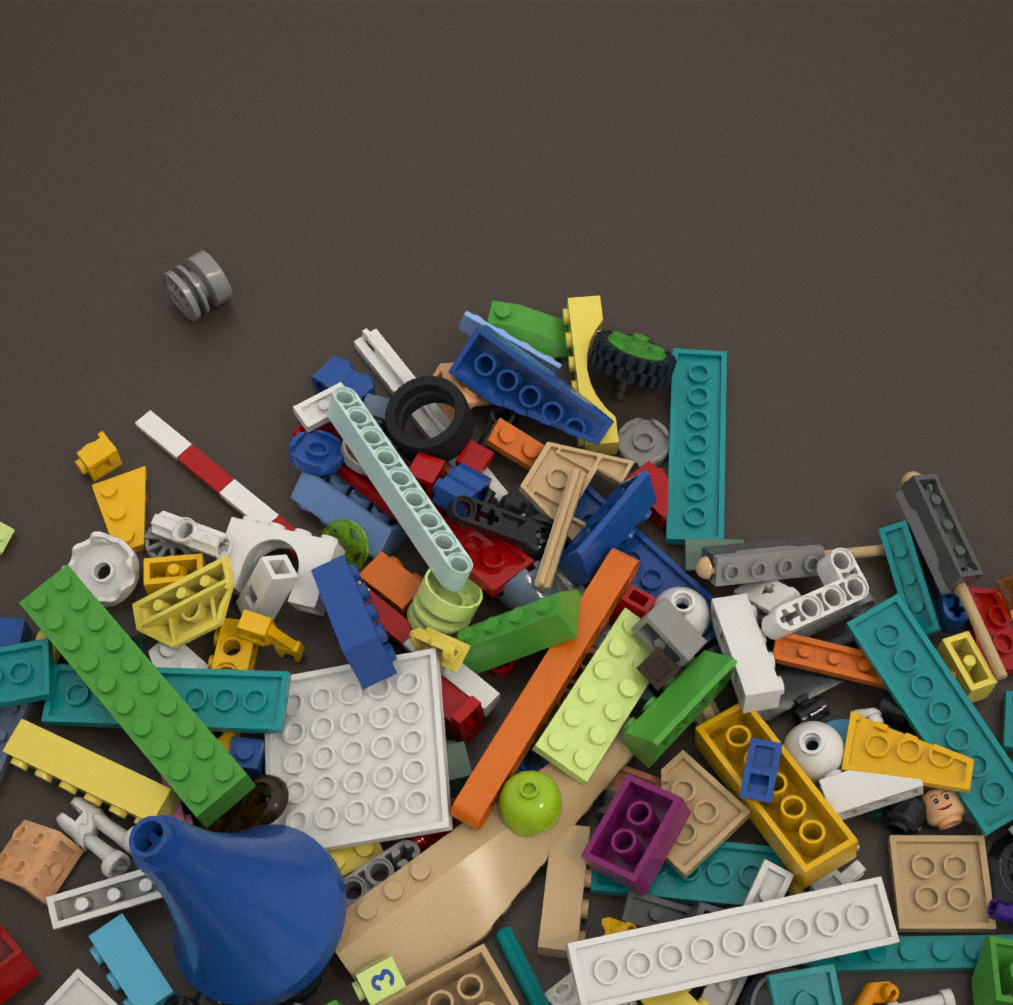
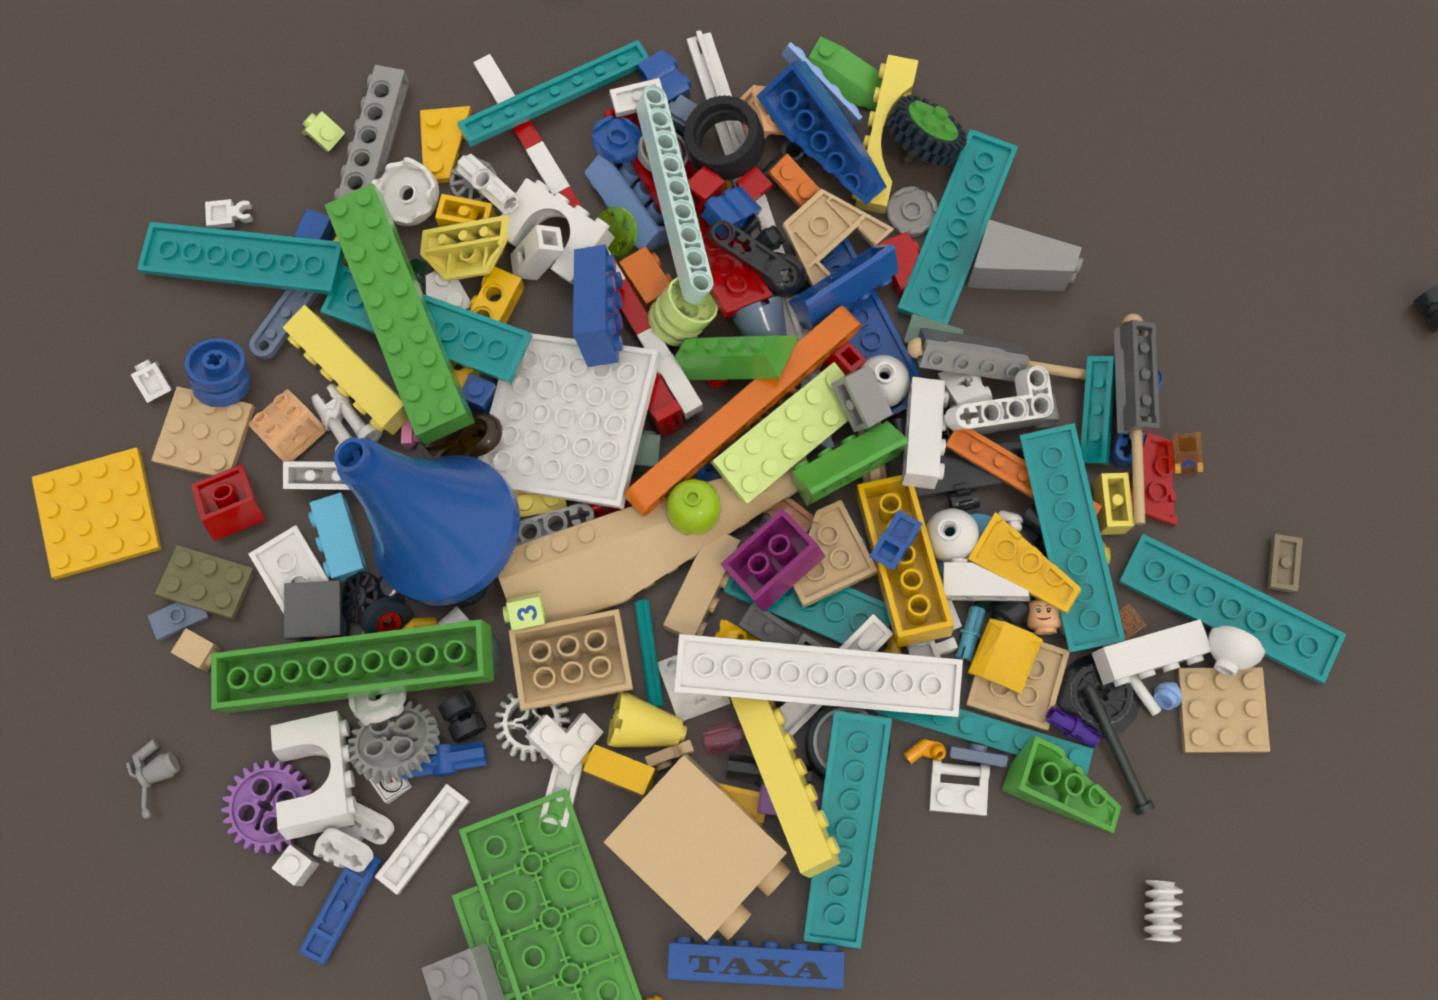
camera: 20 degrees right, 15 degrees up
(46, 465) = (382, 81): none -> light grey brick
(98, 458) = (432, 87): yellow brick -> none
(229, 430) = (552, 94): none -> teal plate
(263, 632) = (524, 290): yellow piece -> none
(450, 649) = (671, 355): light yellow hinge -> none
(560, 530) = (803, 274): tan axle -> none
(658, 668) = (842, 425): dark brown plate -> none
(776, 456) = (1023, 261): none -> light grey slope
(872, 849) = (970, 633): none -> medium azure axle
(920, 859) = (1005, 655): none -> yellow slope
(933, 979) = (977, 753): none -> sand blue plate

